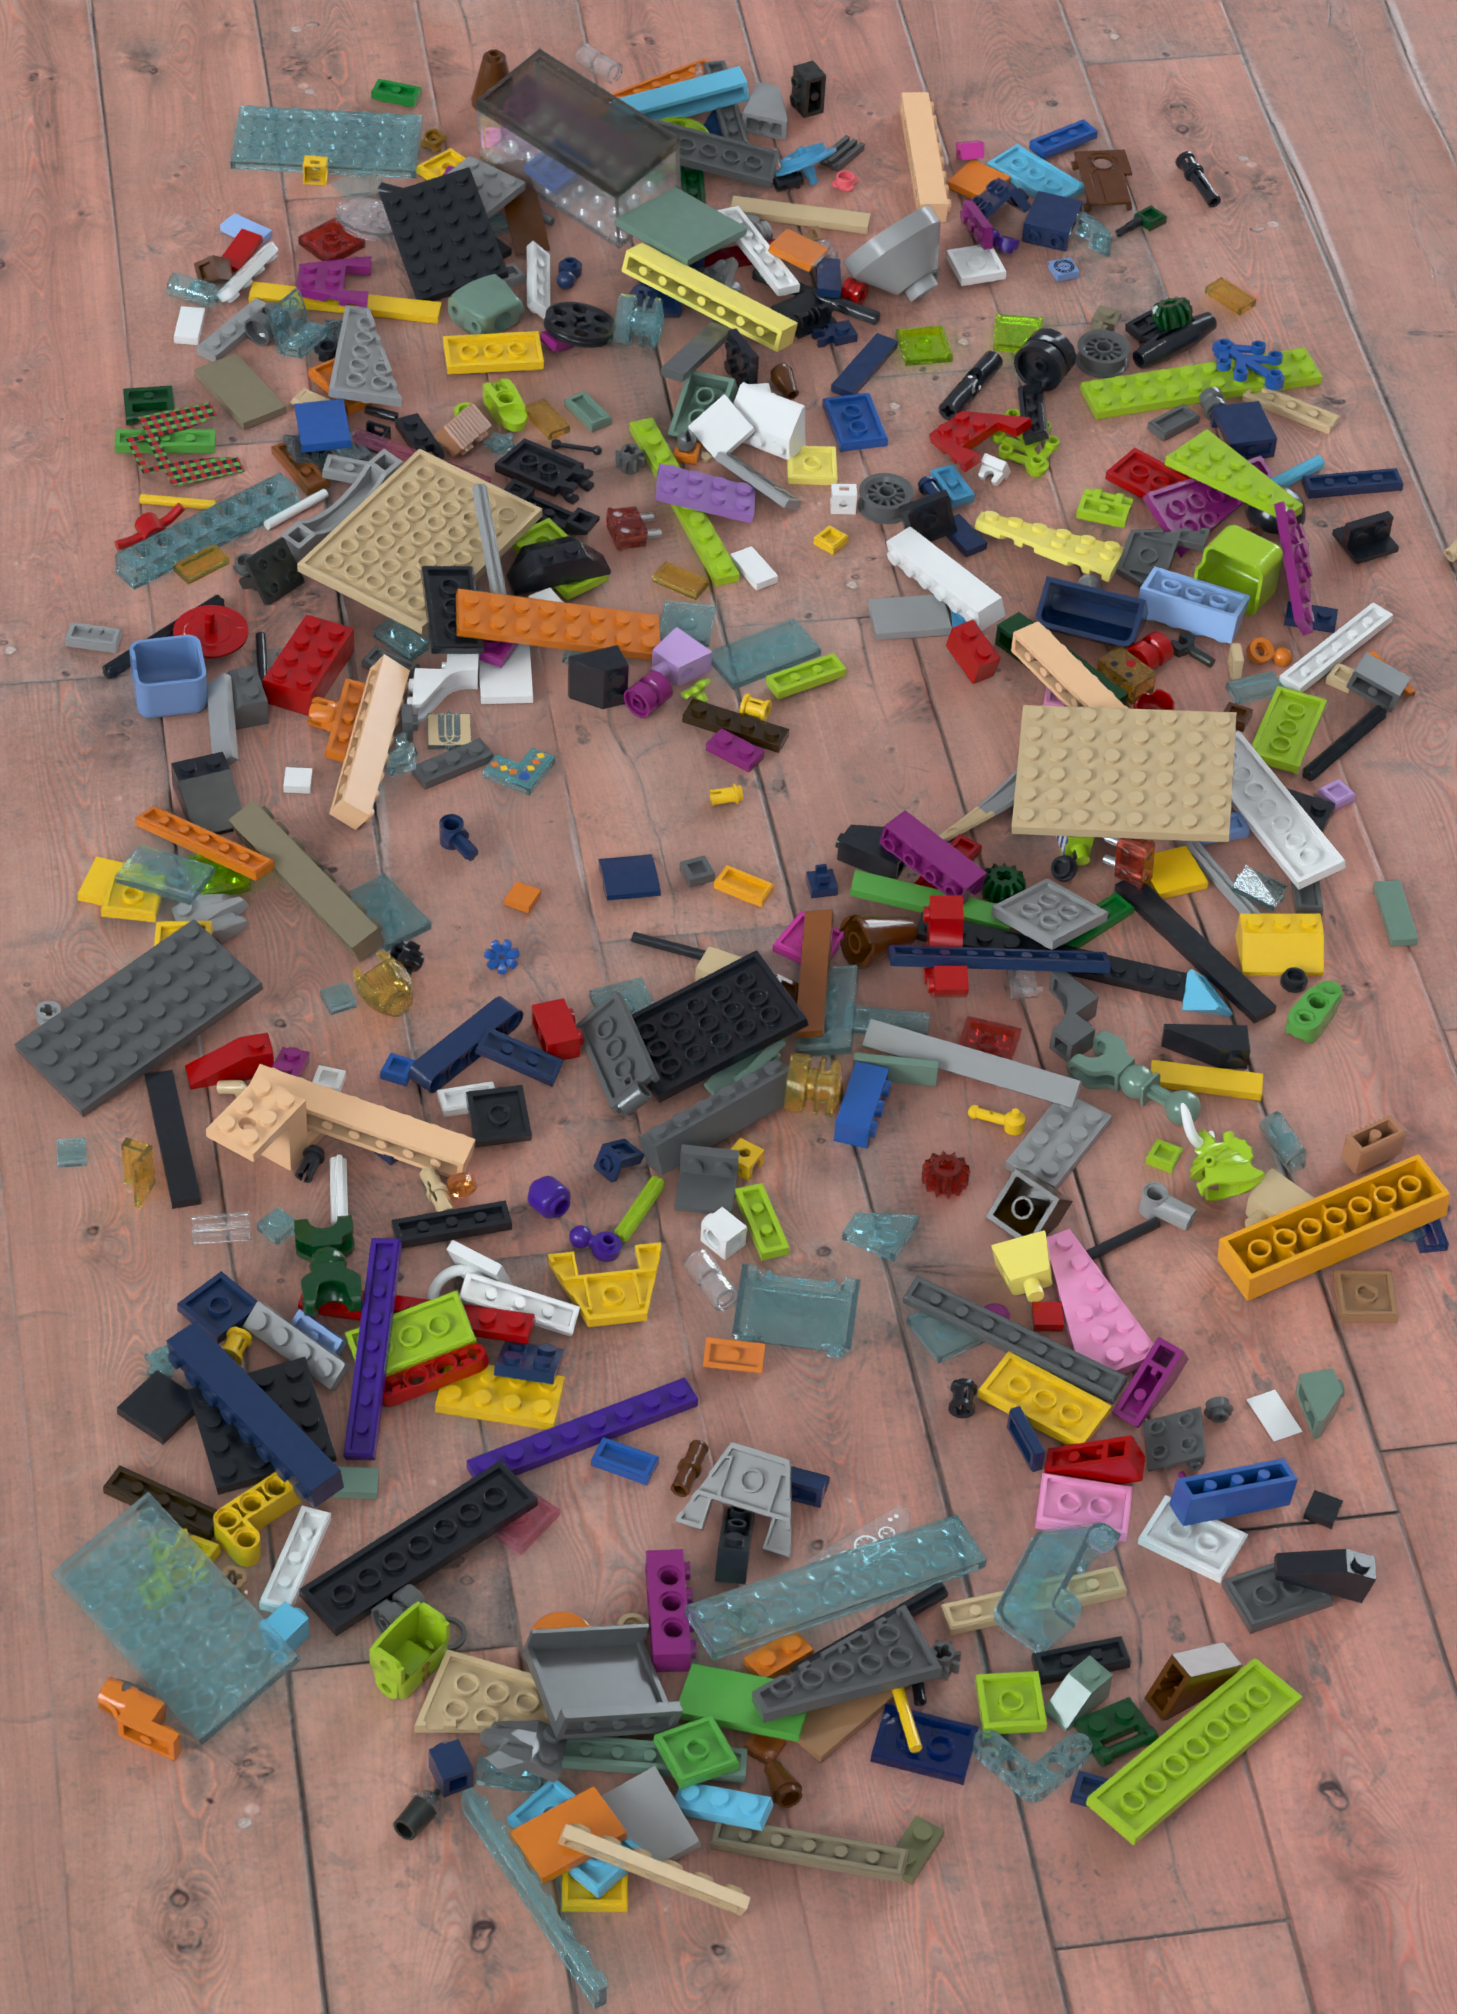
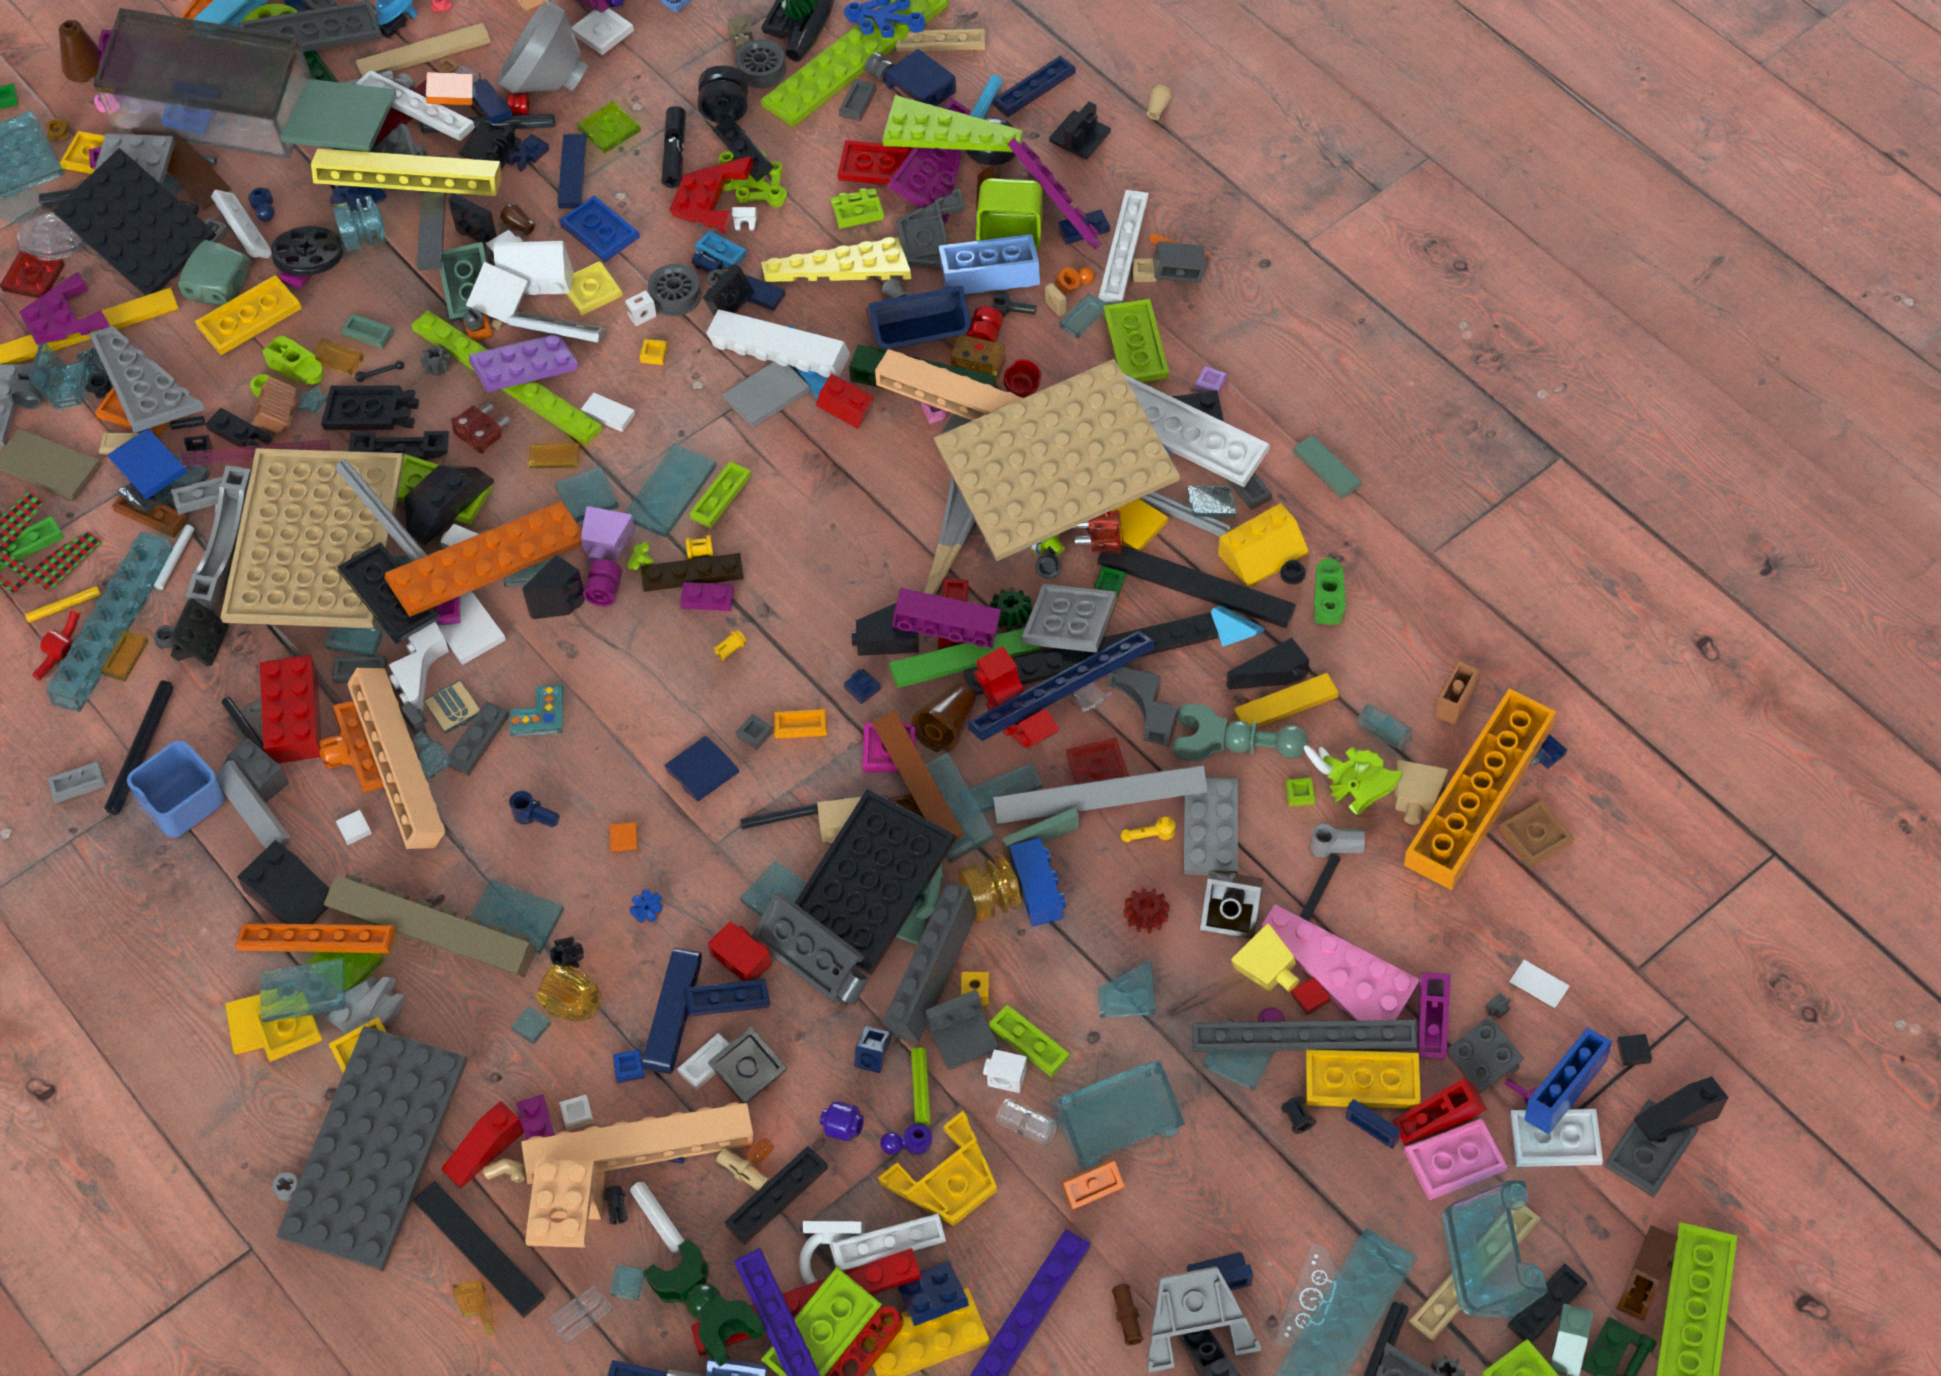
camera: 25 degrees left, 10 degrees up
(71, 1152) = (398, 1314): clear light blue tile -> none
(217, 628) = (181, 717): red piece -> none
(625, 1461) = (1068, 1338): blue tile -> none
(1014, 331) = (676, 78): clear neon green tile -> none
(1243, 715) = (1086, 350): reddish brown tile -> none
(1319, 1398) = (1568, 951): sand green slope -> none
(1344, 743) = (1186, 330): black axle -> none

